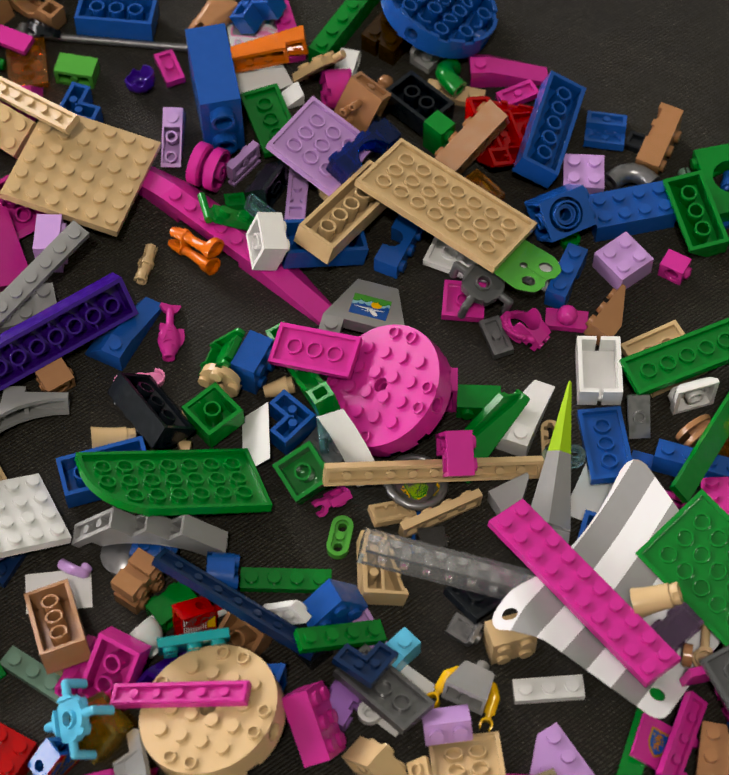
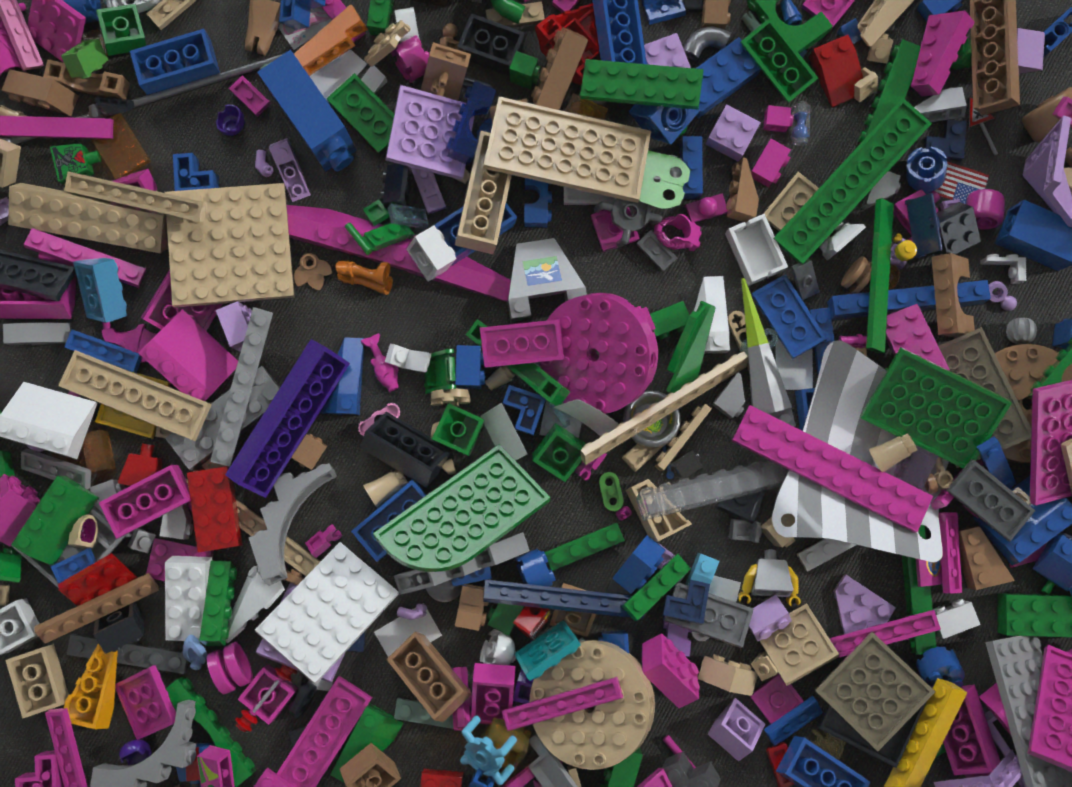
camera: 25 degrees left, 25 degrees up
(18, 465) = (321, 540): none -> dark pink plate
(76, 69) = (167, 134): bright green brick -> none
(145, 231) = (312, 274): none -> medium nougat plate
(145, 264) = (329, 306): tan pin -> none
(148, 125) = (261, 165): none -> lavender arm
(193, 334) = (408, 358): none -> white bracket
(207, 166) = (337, 190): dark pink wheel -> none
(243, 163) = (365, 172): lavender plate -> none
(291, 611) = (605, 585): white plate -> none
(343, 565) = (623, 513): none -> dark pink rock
(457, 453) = (681, 387): dark pink brick -> none
(544, 173) = (642, 84): none -> green plate
(649, 302) = (769, 163): none -> dark pink brick
(694, 286) = (801, 132): none -> clear piece

